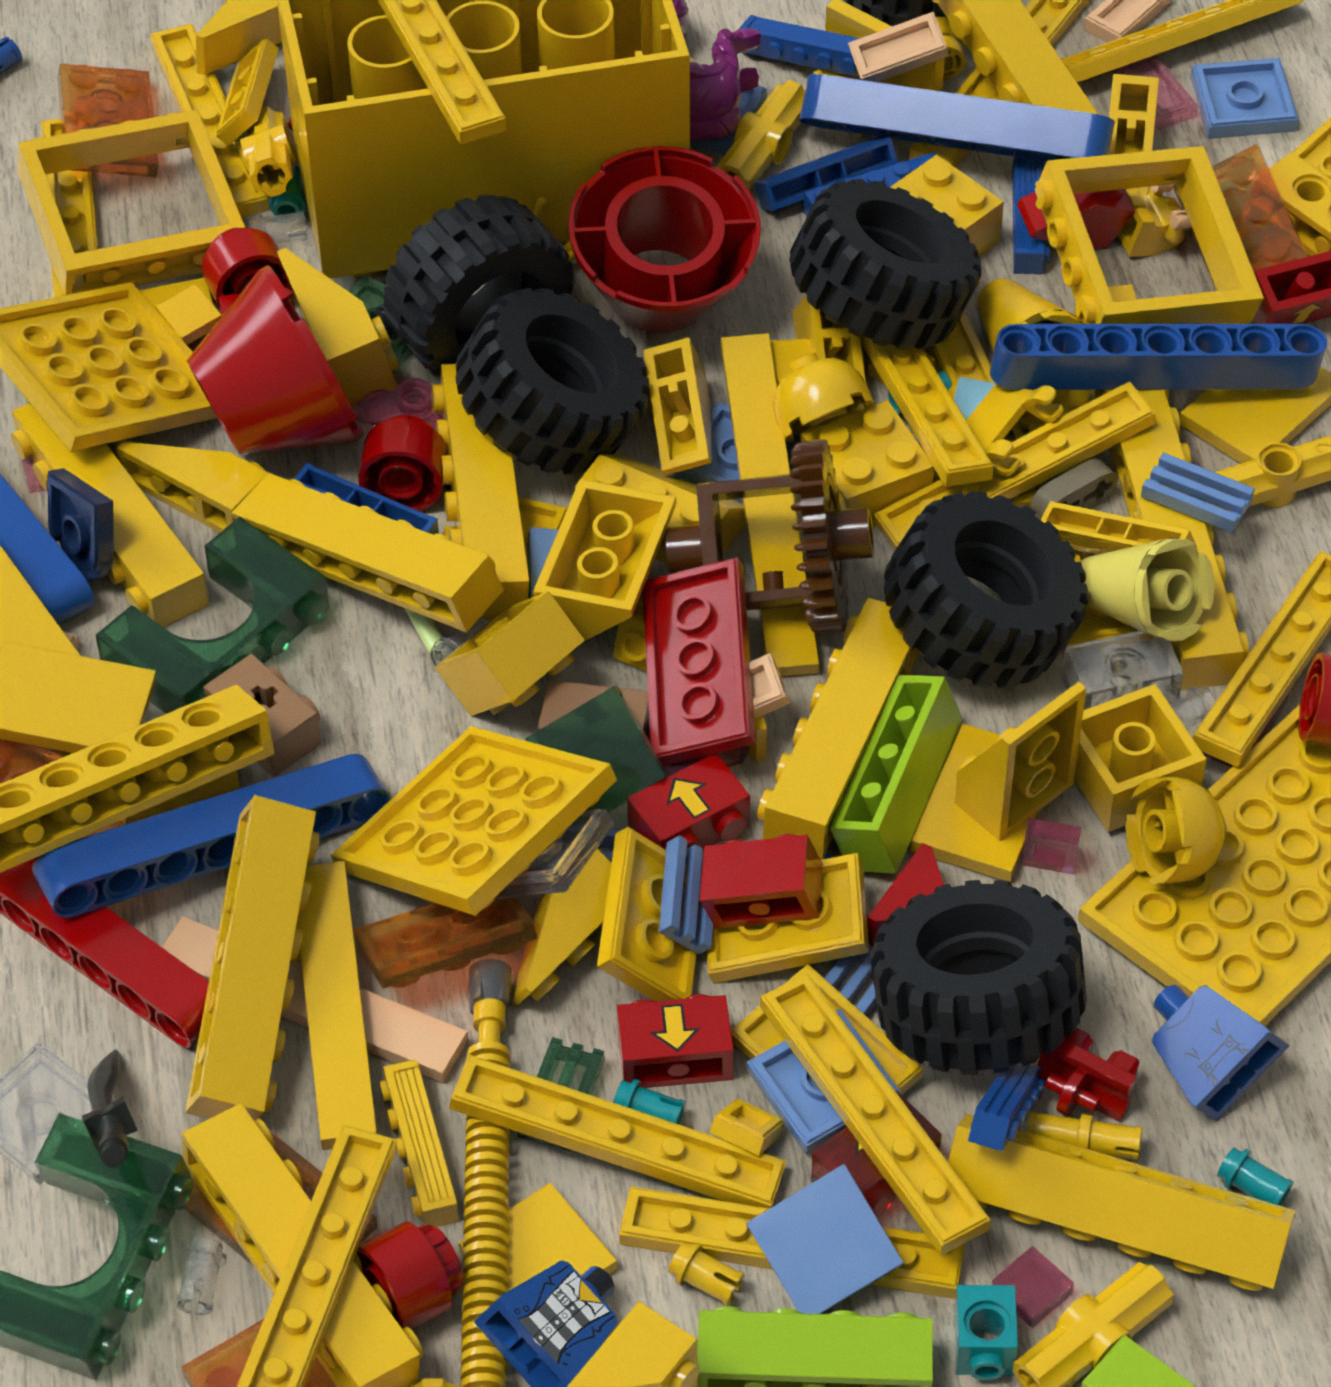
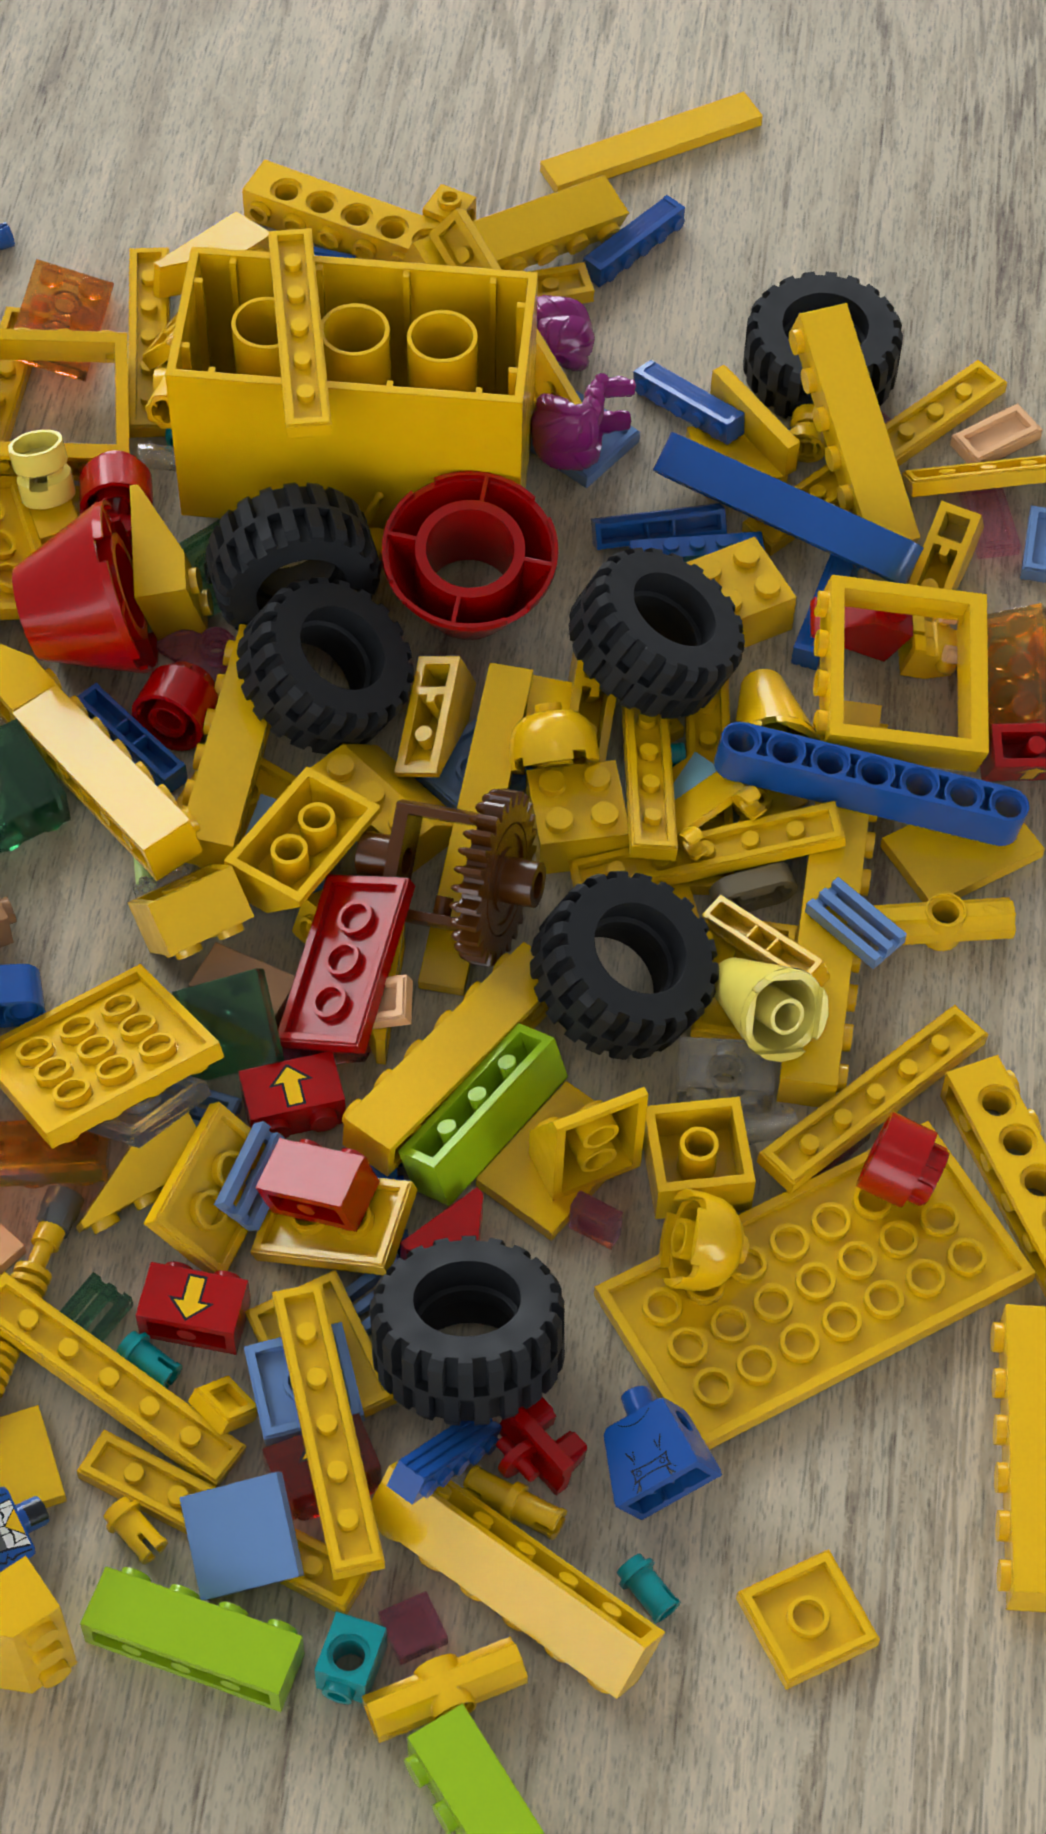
camera: 15 degrees right, 5 degrees up
(164, 263) = (42, 469): none -> light yellow wheel
(764, 135) = (613, 480): yellow piece -> none
(899, 48) = (759, 428): light nougat tile -> none

